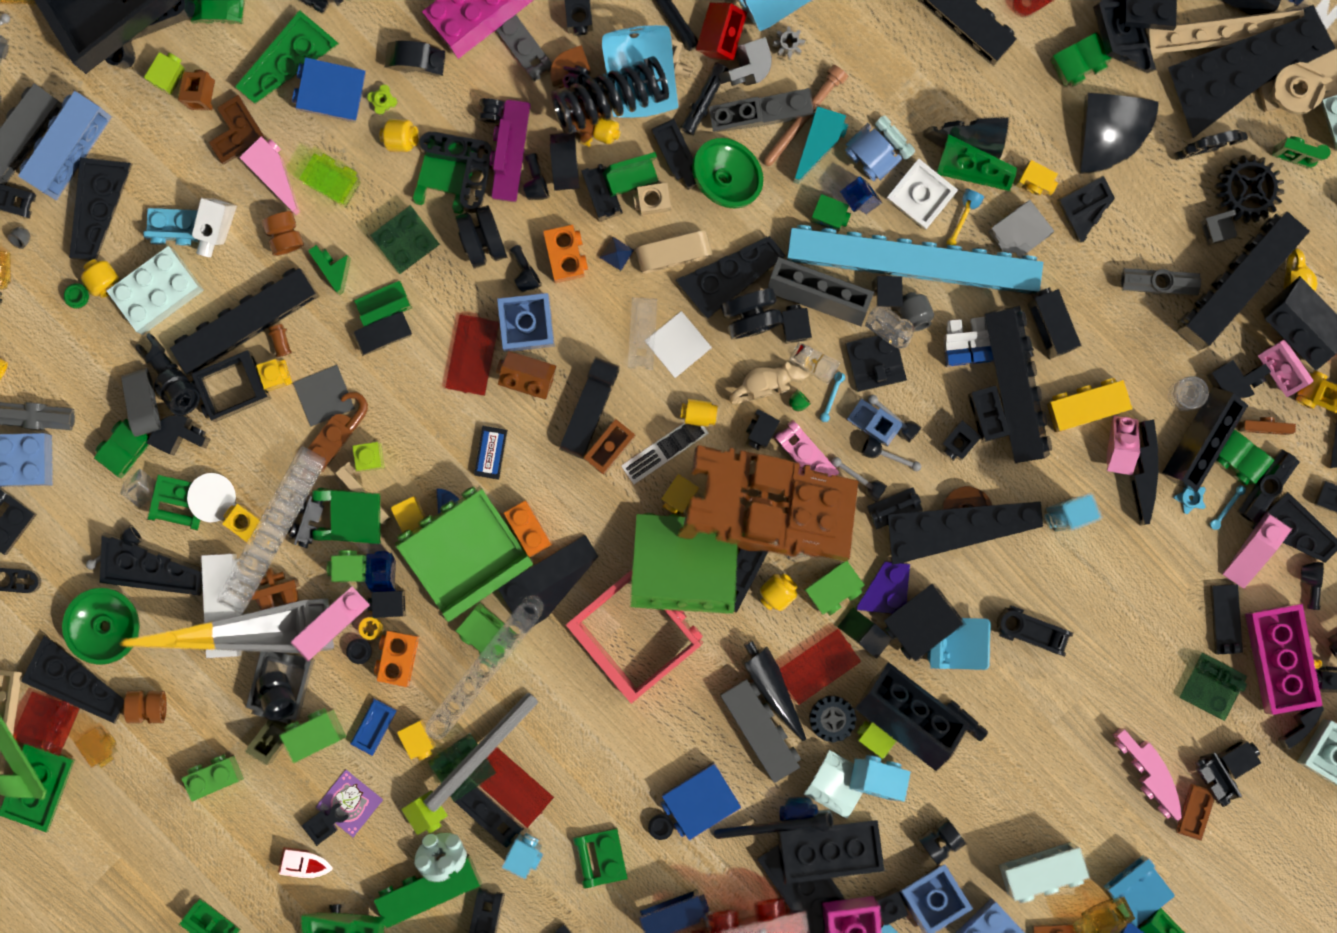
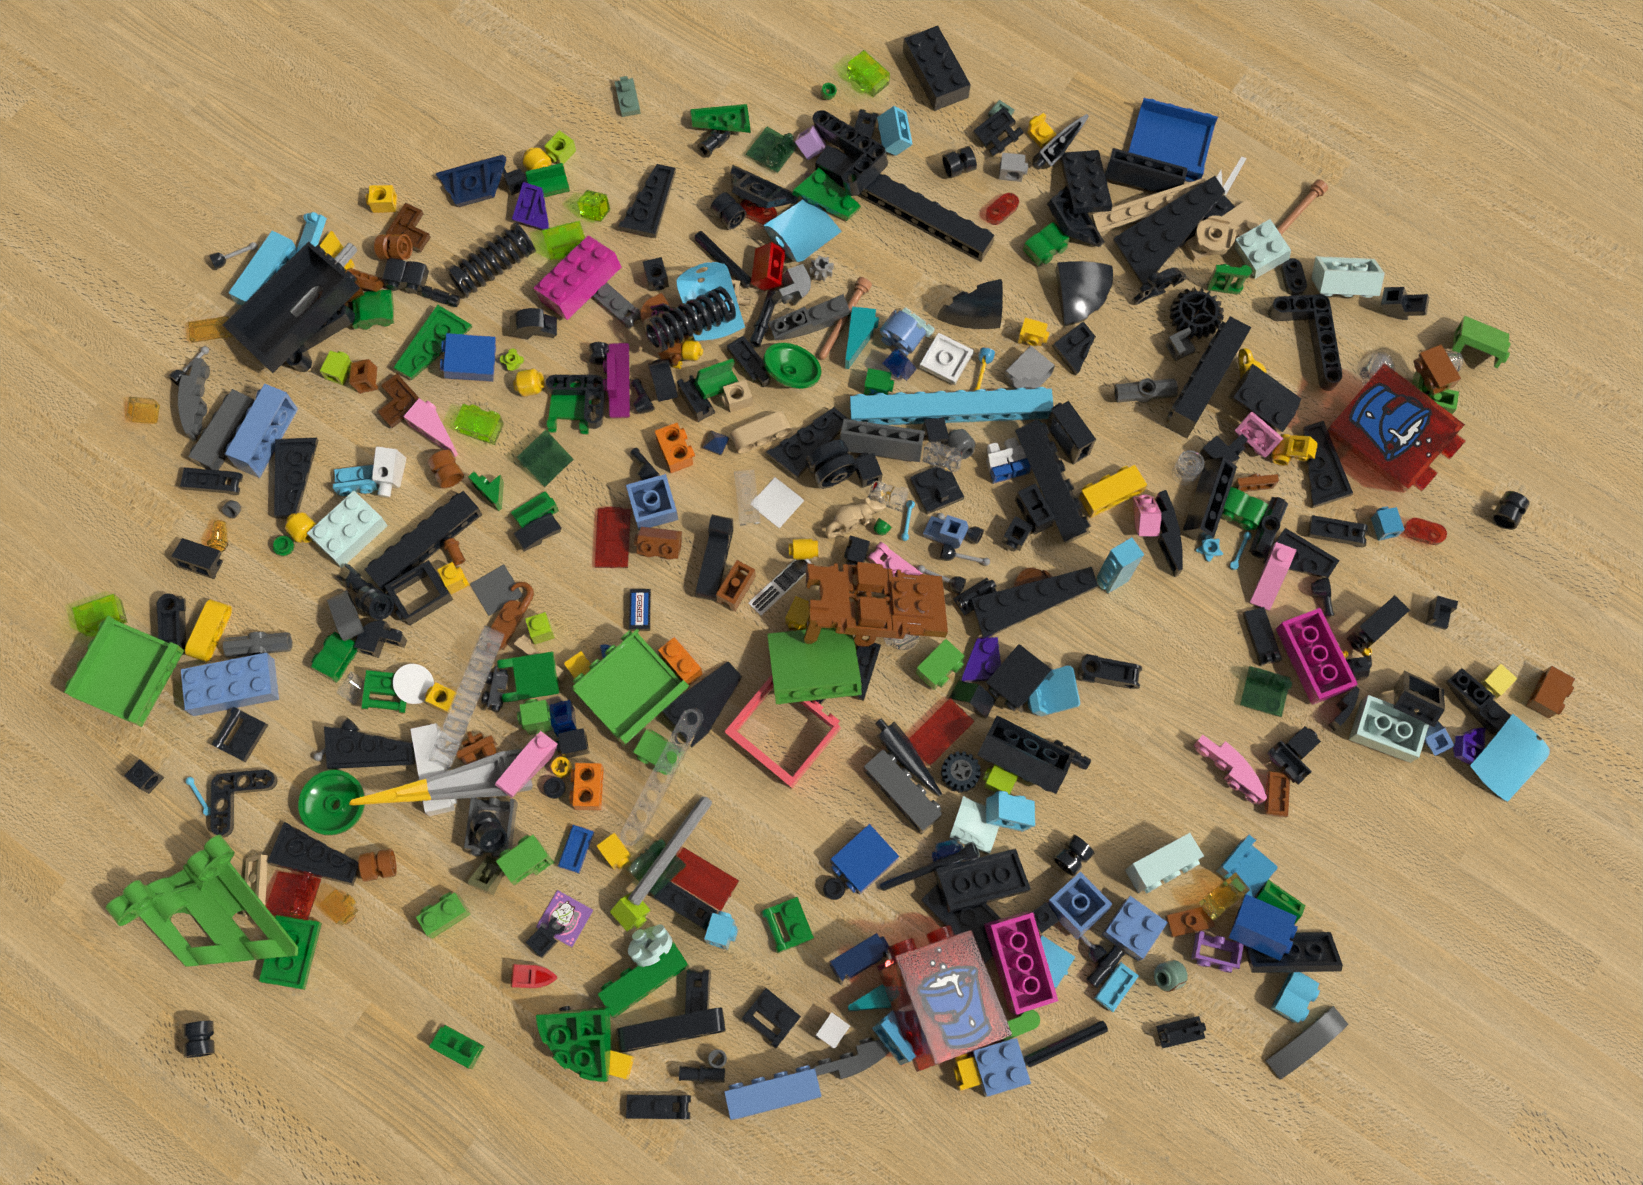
camera: 10 degrees left, 15 degrees down
(477, 238) = (603, 443): black wheel -> none
(778, 592) = (895, 677): yellow head -> none
(975, 166) = (979, 329): green wing -> none

